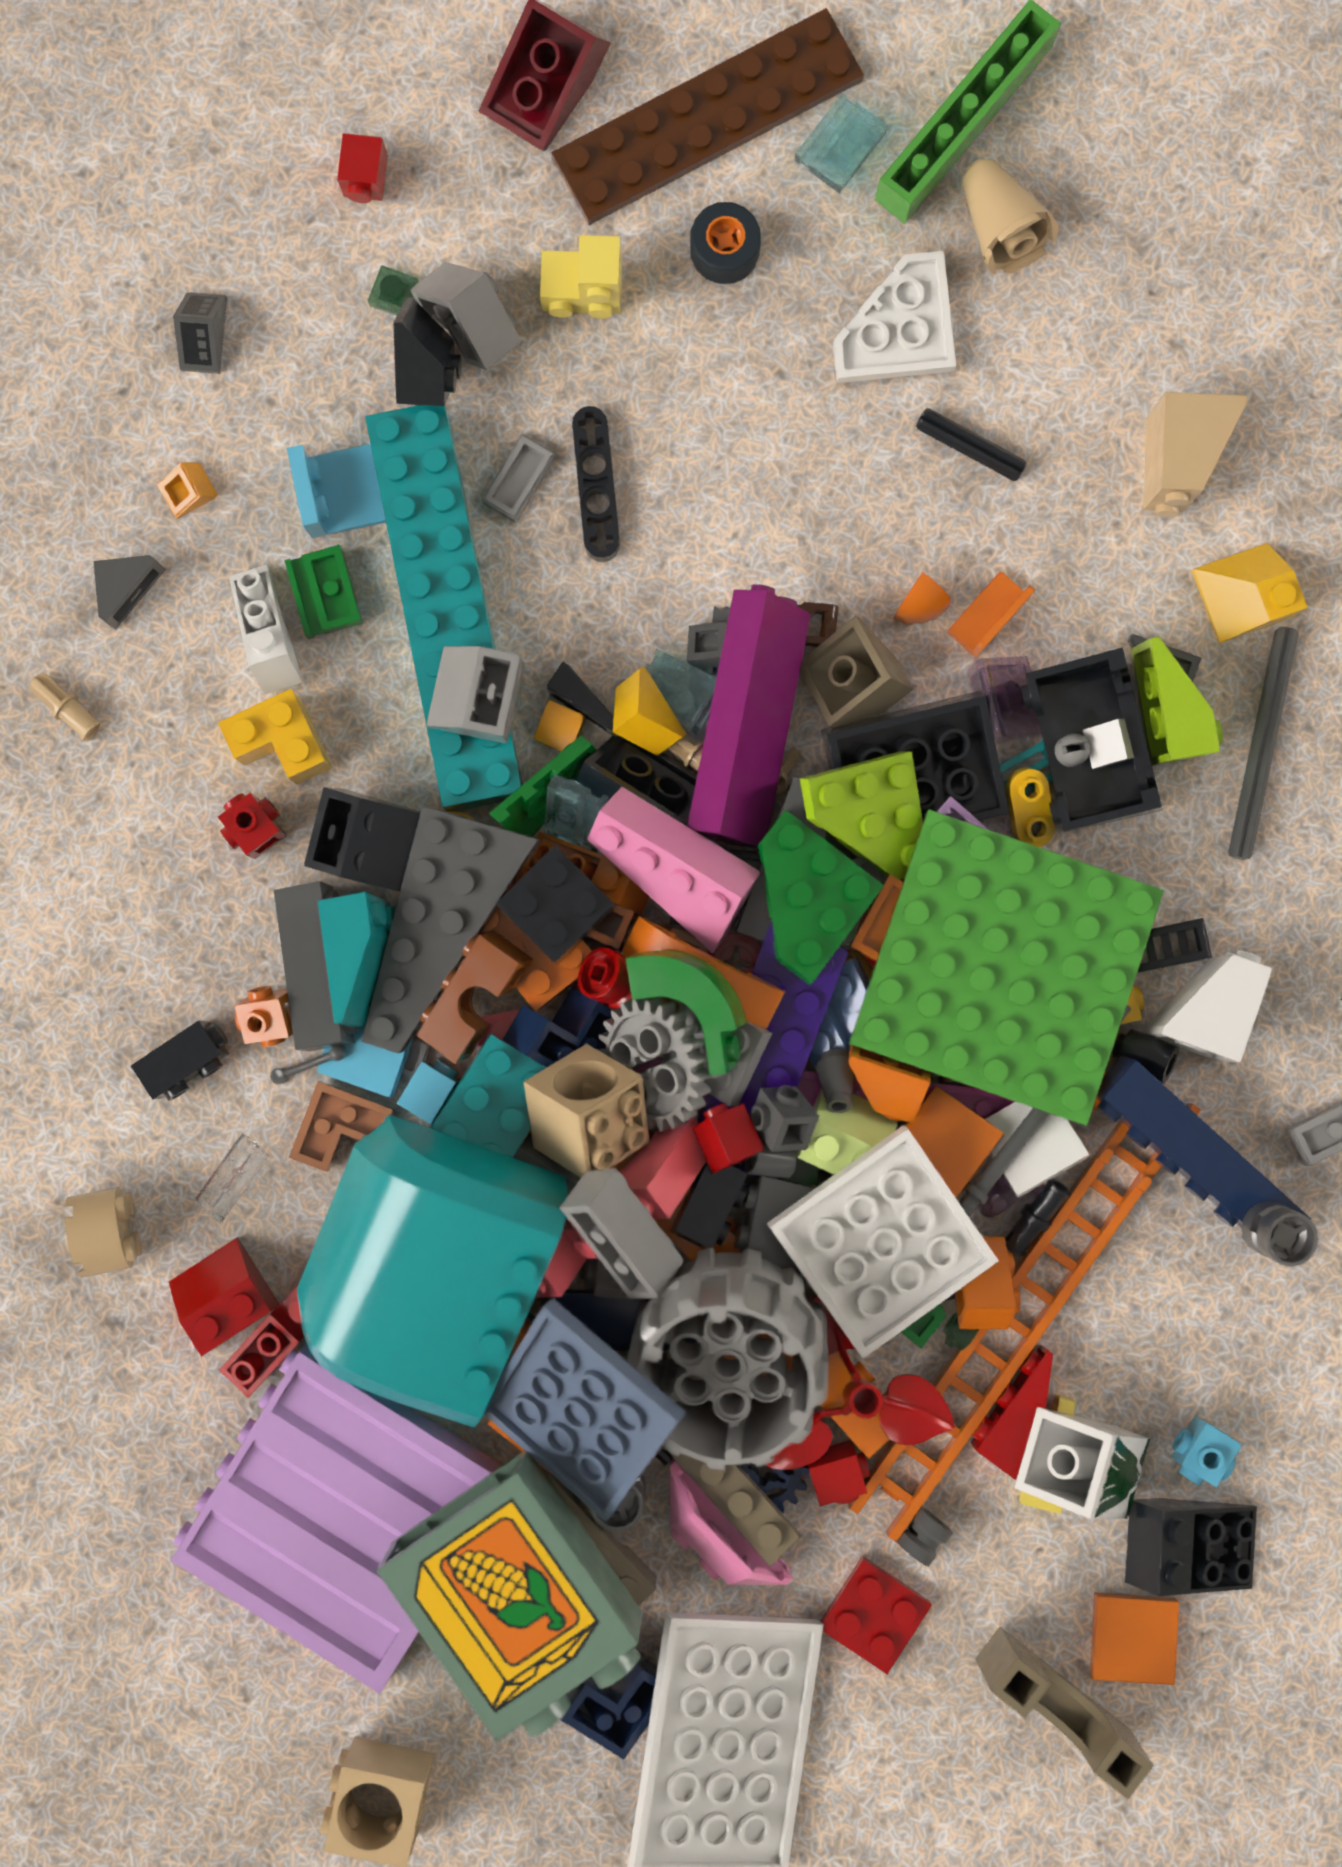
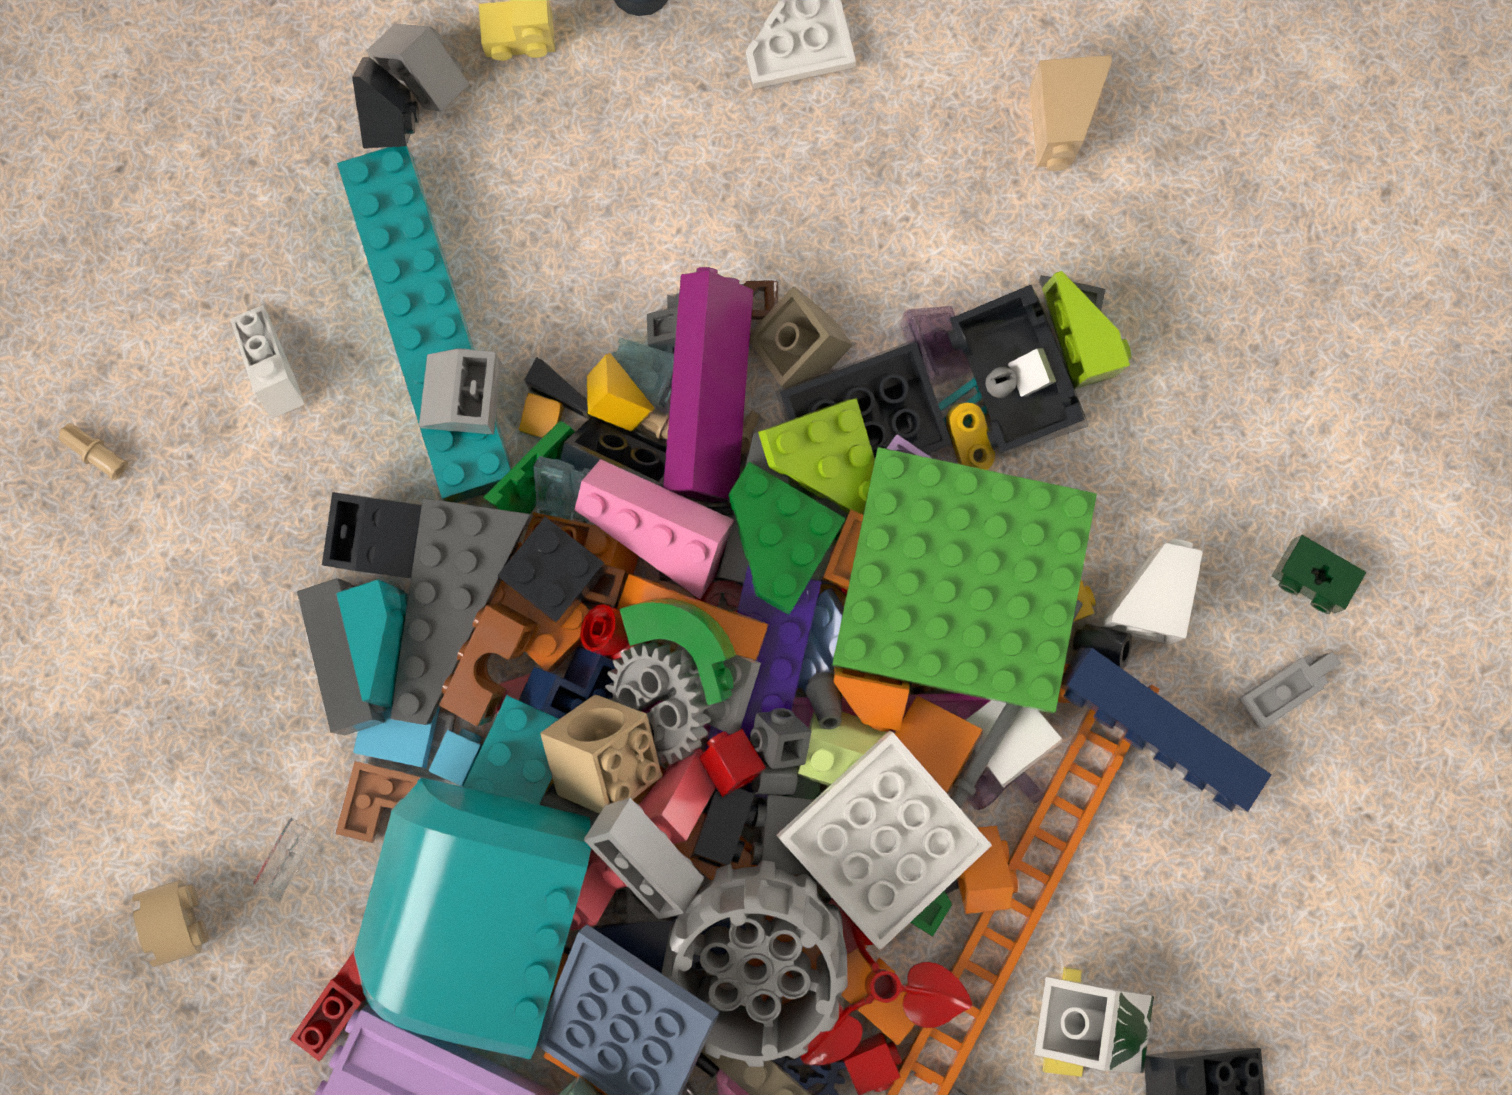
camera: 10 degrees left, 5 degrees down
(123, 584) = (135, 336): dark grey slope -> none
(182, 1058) = (227, 756): black brick -> none
(186, 488) = (184, 246): light orange slope -> none
(200, 332) = (183, 109): dark grey slope -> none
(221, 1296) = (285, 971): red slope -> none
(261, 833) = (271, 535): red brick -> none
(264, 1016) = (299, 707): orange brick -> none
(277, 726) = (290, 446): yellow brick -> none
(281, 1075) = (321, 760): dark grey hinge -> none
(323, 591) = (316, 322): green plate -> none
(336, 490) = (318, 231): medium azure bracket -> none
(391, 290) = (348, 53): clear green plate -> none
(518, 478) = (480, 203): light grey tile -> none
(595, 484) = (549, 200): black beam -> none
(923, 602) = (852, 268): orange brick -> none
(958, 1337) = (966, 922): clear green plate -> none
(971, 444) = (877, 127): black axle -> none
(989, 614) = (912, 272): orange panel -> none
(1006, 1431) = (1021, 1006): red slope -> none
(1036, 1217) = (1023, 804): black pin -> none
(1201, 937) = (1143, 547): black slope -> none
(1205, 1452) = (1218, 1000): medium azure brick -> none
(1248, 592) = (1139, 227): yellow slope -> none
(1263, 743) = (1170, 357): dark grey axle -> none
(1280, 1233) = (1243, 789): flat silver wheel -> none

